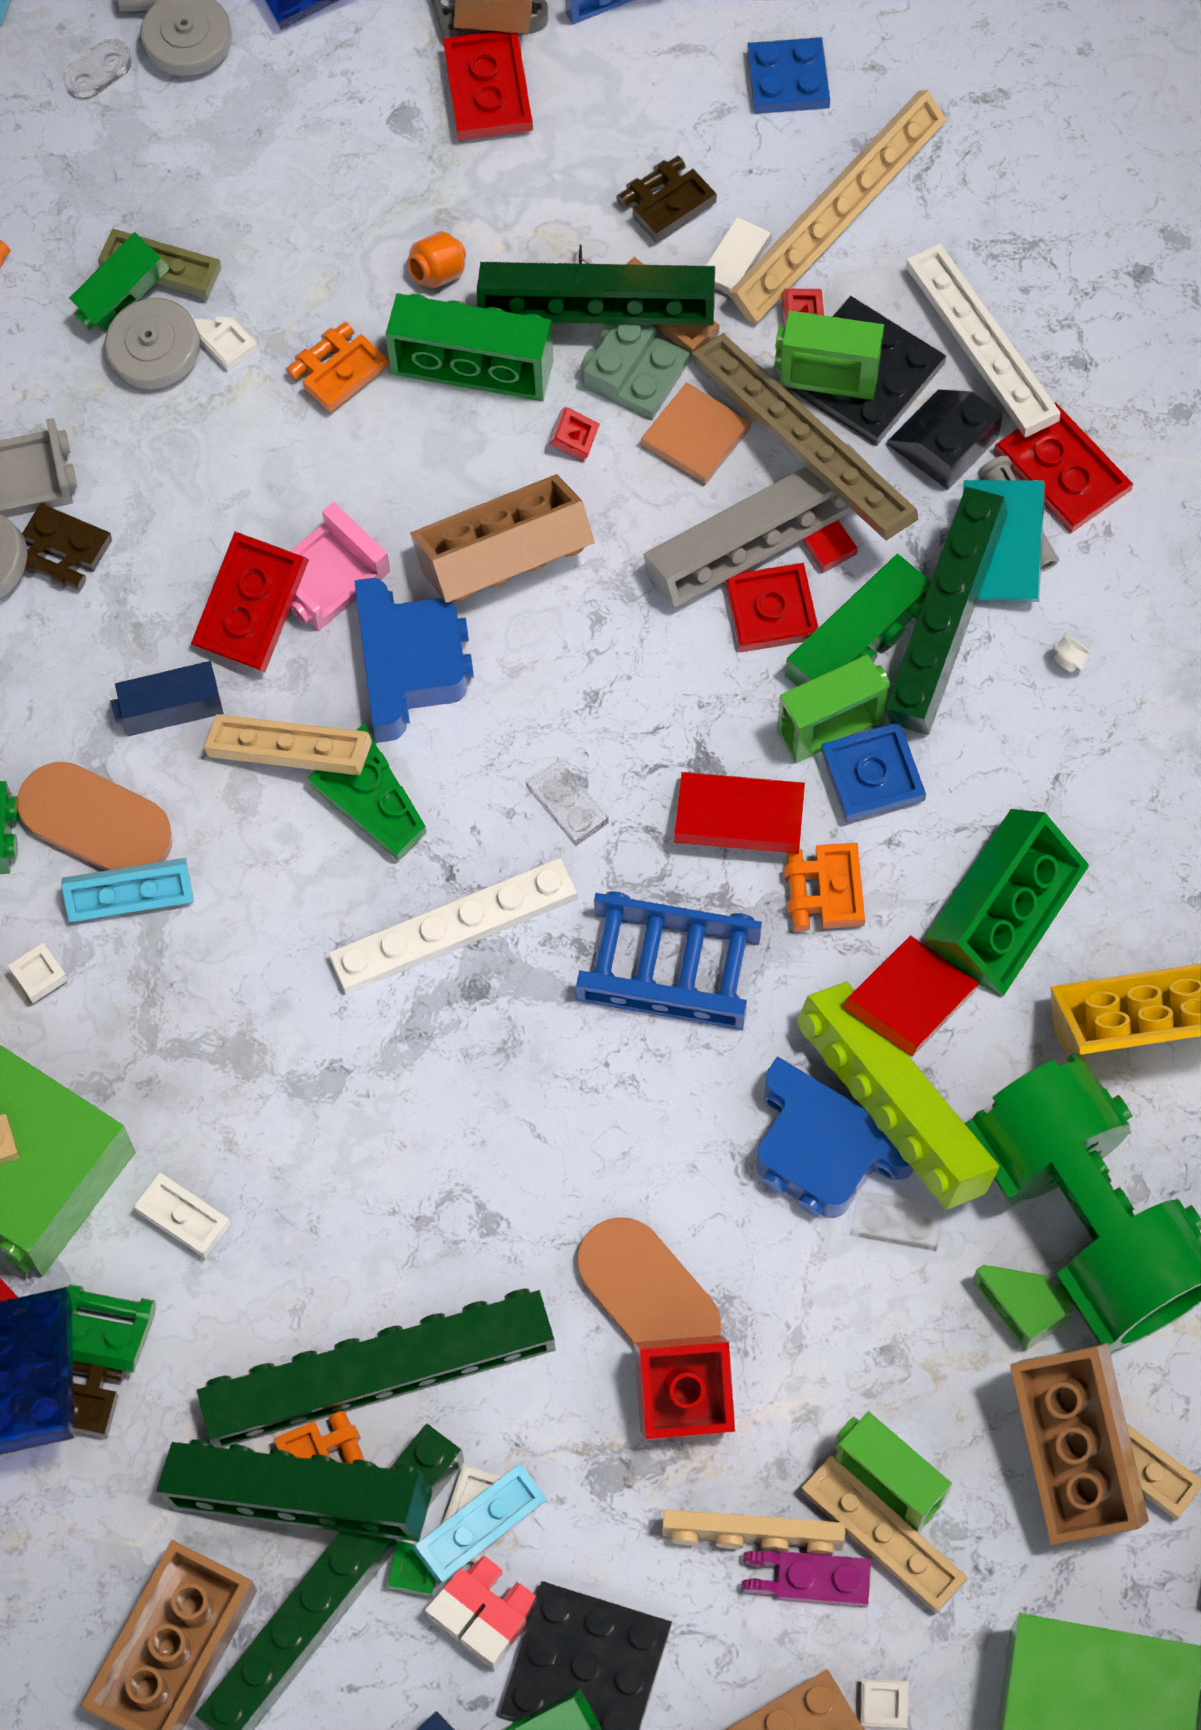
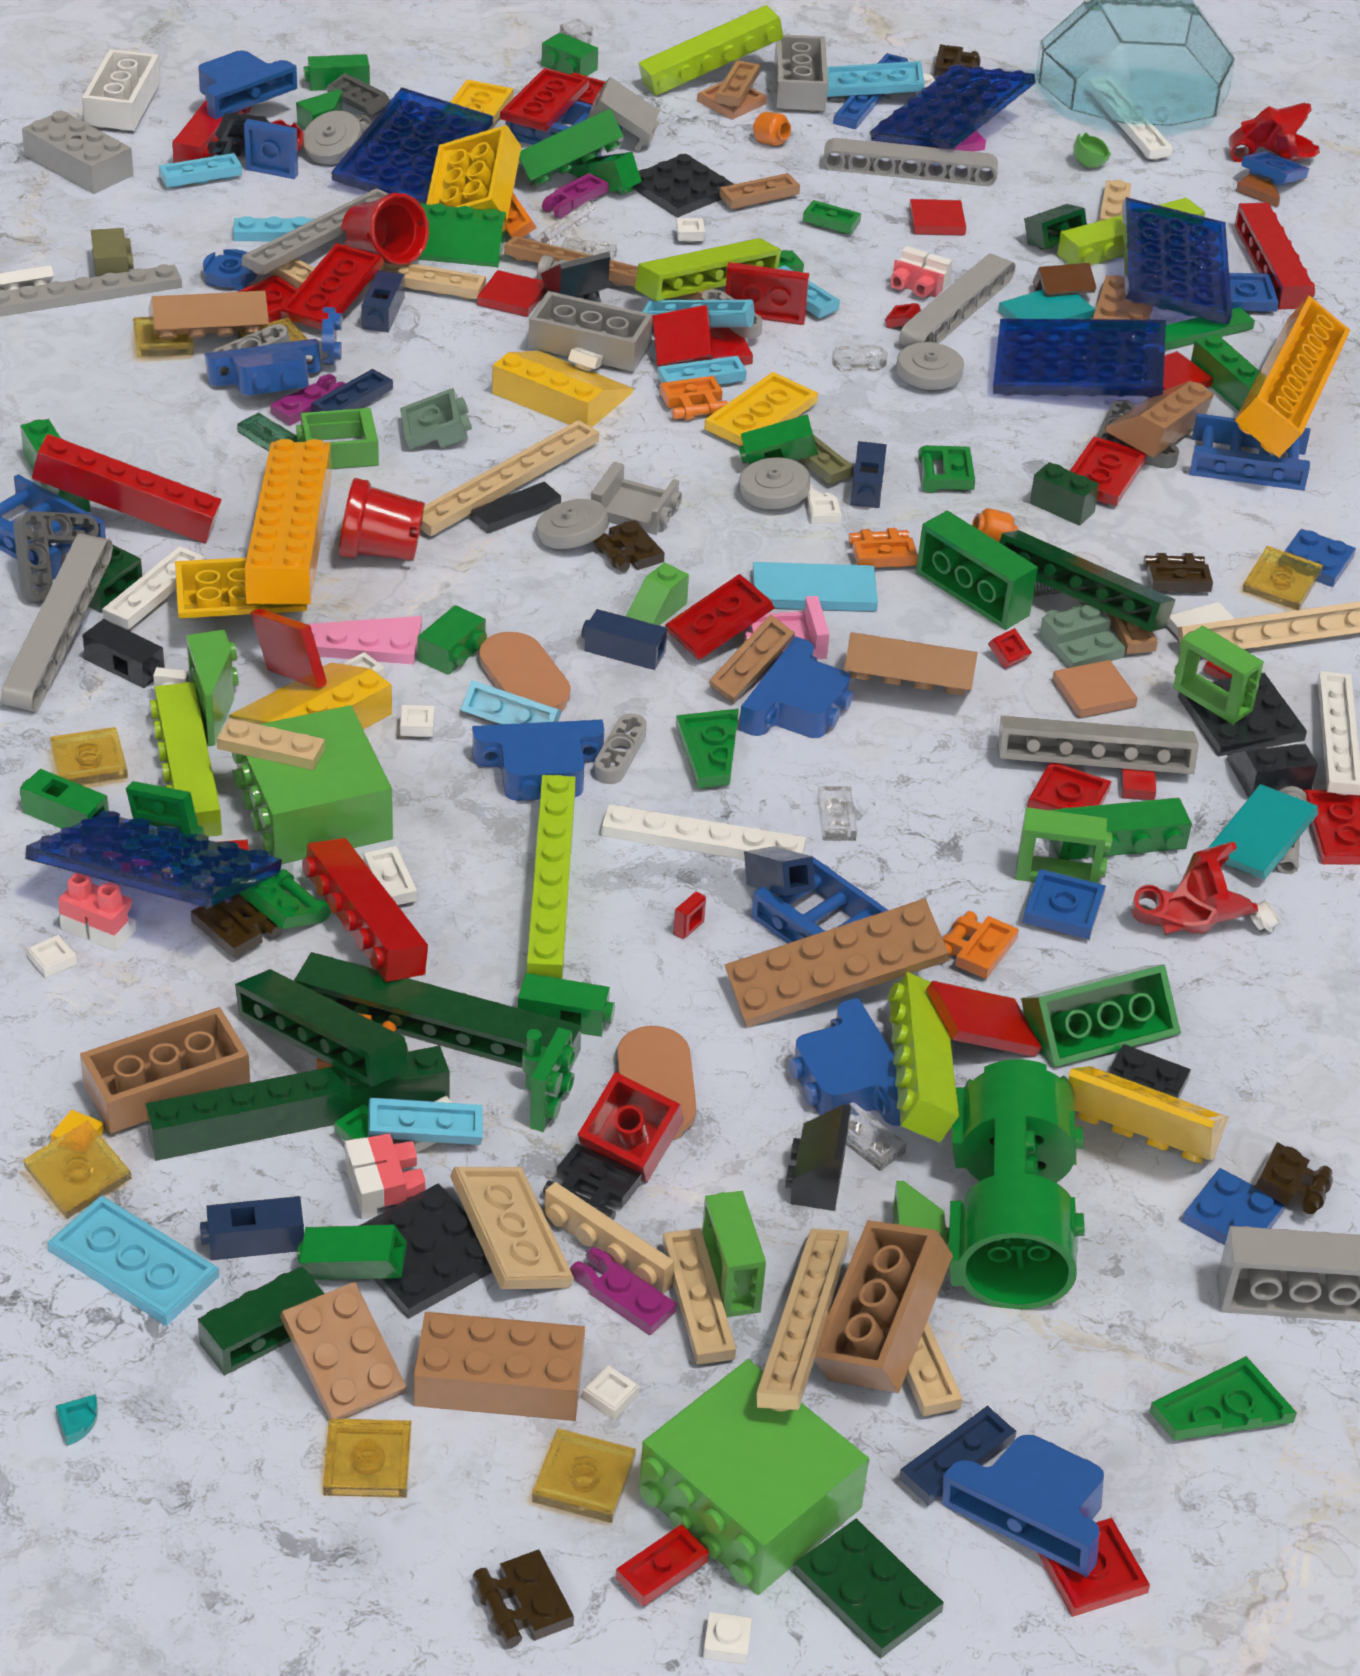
camera: 30 degrees right, 25 degrees down
(50, 230) = (763, 404): none -> yellow plate
(158, 611) = (660, 595): none -> bright green slope
(205, 1292) = (366, 909): none -> red brick
(209, 937) = (535, 750): none -> blue brick
(243, 260) = (868, 474): none -> dark blue brick
(276, 875) = (621, 758): none -> light grey beam
(288, 744) = (679, 692): tan plate -> none
(304, 473) = (834, 584): none -> medium azure tile
(327, 184) = (956, 468): none -> green plate
(330, 642) = (752, 659): none -> medium nougat plate
(358, 1110) = (551, 877): none -> lime brick
(473, 154) = (1064, 493): none -> dark green brick
(492, 1263) = (568, 1001): none -> green brick
(523, 1052) = (689, 915): none -> red tile
(556, 1363) = (547, 1074): none -> green plate
(582, 940) = (779, 870): none -> dark blue brick
(654, 1585) = (511, 1228): none -> tan tile
(686, 1460) = (599, 1176): none -> black plate
(726, 1026) = (836, 962): none -> medium nougat plate
(739, 812) = (950, 875): red tile -> none
(778, 135) = (1282, 578): none -> clear yellow plate
(805, 437) = (1165, 709): dark tan plate -> none
(884, 1290) = (819, 1160): none -> black slope
(947, 610) = (1168, 849): dark green brick -> none
(1004, 681) = (1198, 900): none -> red piece
(1027, 1519) = (803, 1321): none -> tan plate
(1096, 941) = (1150, 1071): none -> black plate

